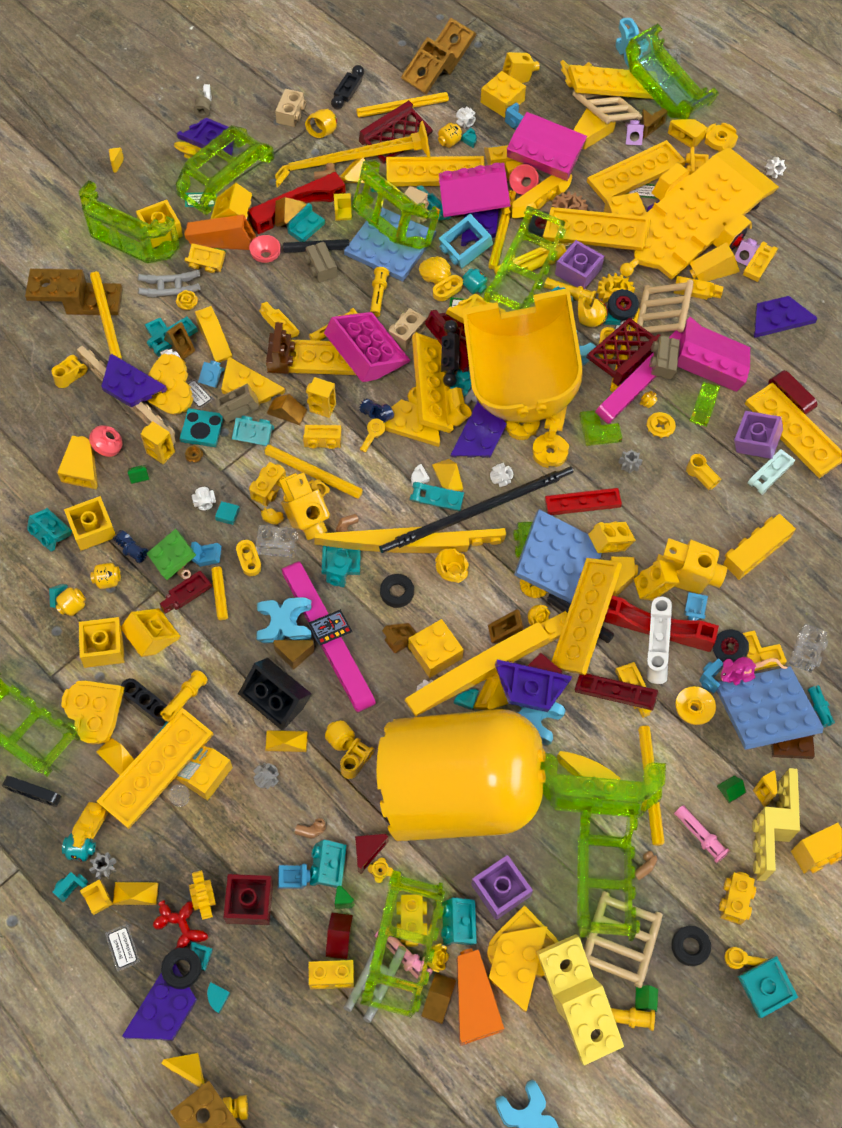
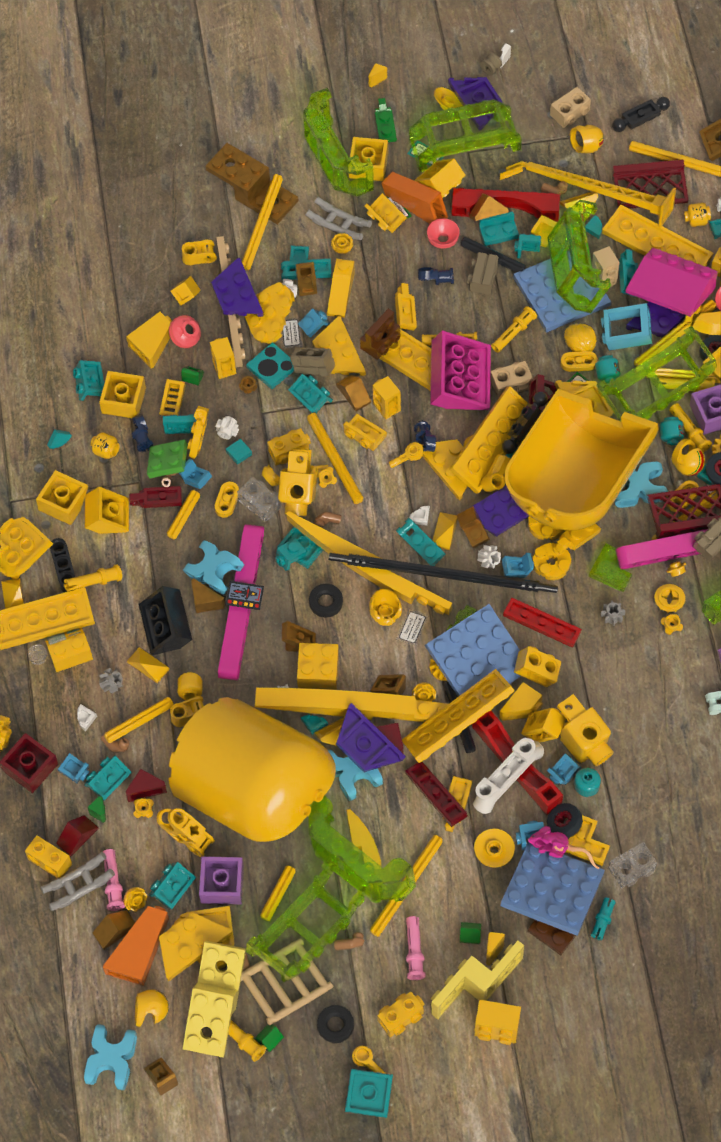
camera: 40 degrees right, 0 degrees up
(70, 601) = (63, 450): yellow head -> none
(80, 408) = (185, 290): none -> yellow panel
(131, 489) = (175, 385): none -> yellow slope
(147, 190) = (385, 122): none -> green hinge
(163, 517) = (178, 424): none -> teal bracket
(183, 512) = (198, 430): none -> yellow hinge
(265, 823) = (85, 717): none -> white tile
(284, 283) = (441, 276): none -> dark blue connector
(317, 794) = (138, 720): none -> yellow axle
(337, 221) = (527, 243): none -> teal bracket
(387, 930) = (106, 848): clear neon green windscreen -> none
(412, 911) = (137, 858): yellow brick -> none
(437, 864) = (186, 830): none -> yellow piece
(469, 459) = (473, 527): none -> pearl gold slope
(483, 569) = (412, 627): none -> clear sticker
(530, 468) = (517, 566): none -> dark azure bracket
(530, 1044) = (151, 1002): none -> yellow helmet
(553, 865) = (277, 893): none -> yellow axle
(585, 1104) = (161, 1076): none -> pearl gold slope
(678, 438) = (672, 618): none -> yellow plate
(703, 472) = (670, 663): yellow piece -> none
(722, 604) = (587, 782): none -> teal head
(759, 546) = (664, 755): yellow brick -> none

